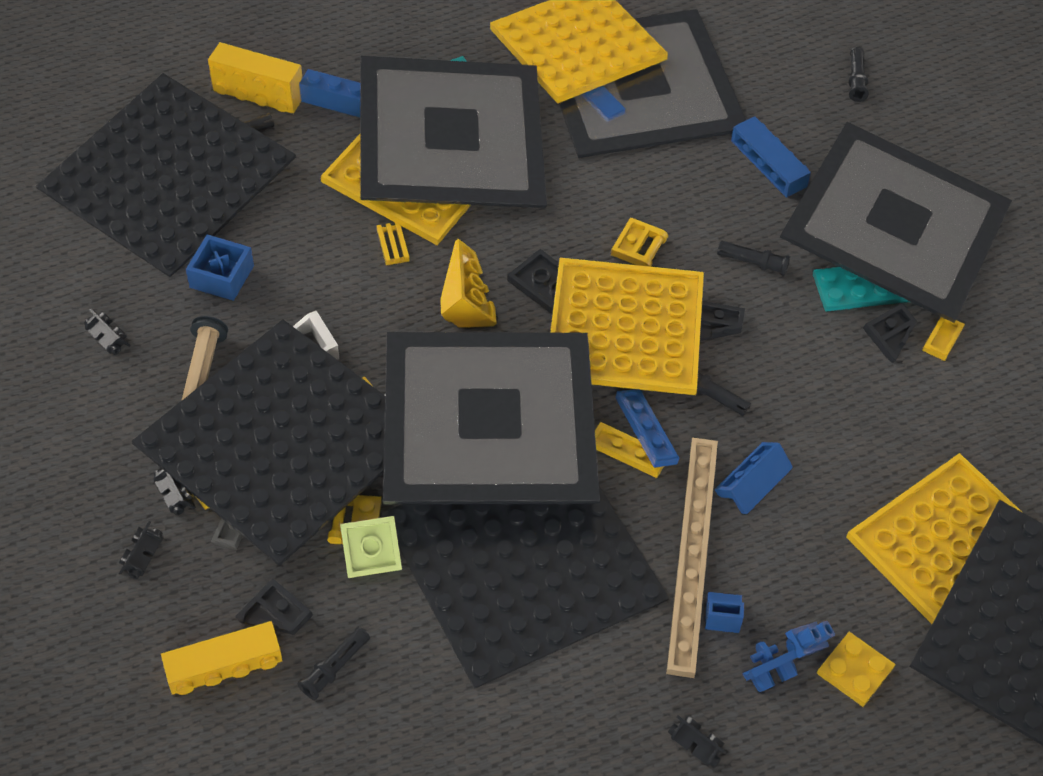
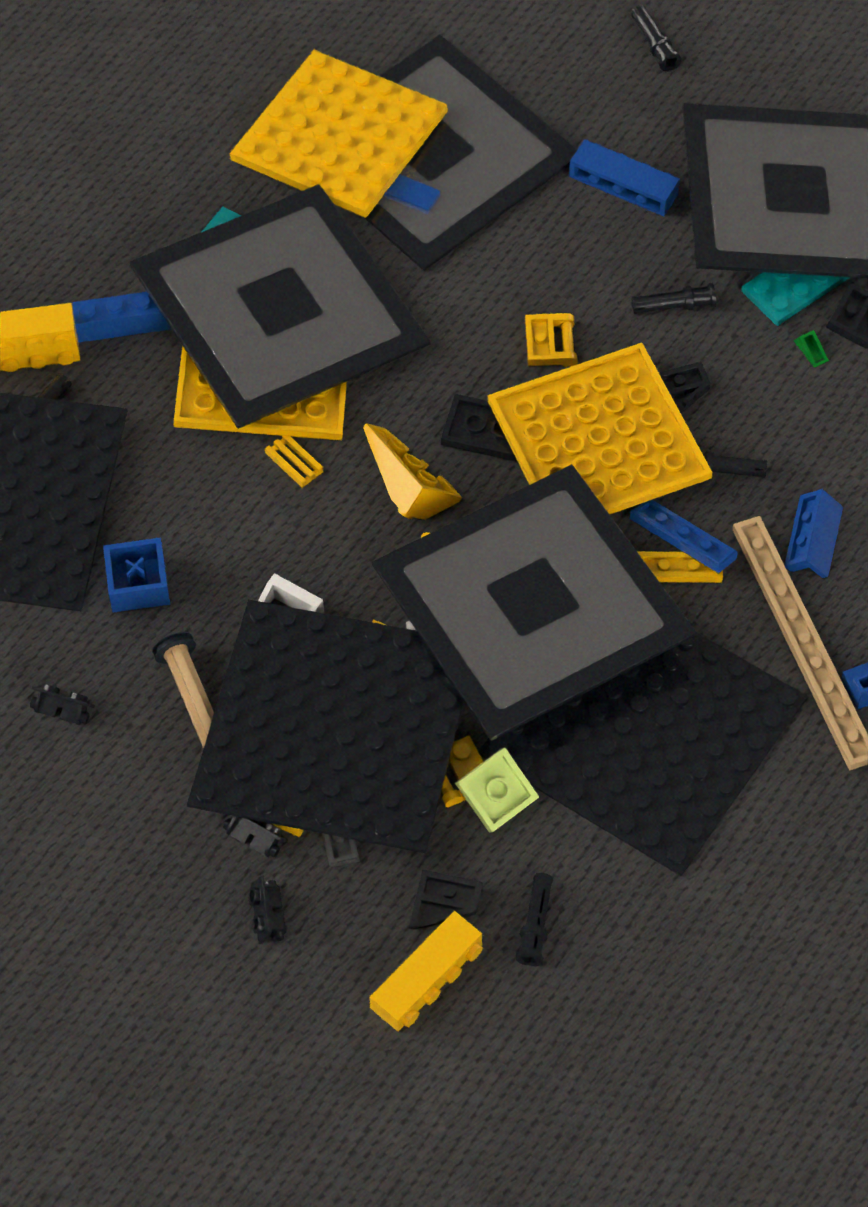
camera: 25 degrees left, 5 degrees up
(842, 338) = (811, 348): none -> green piece

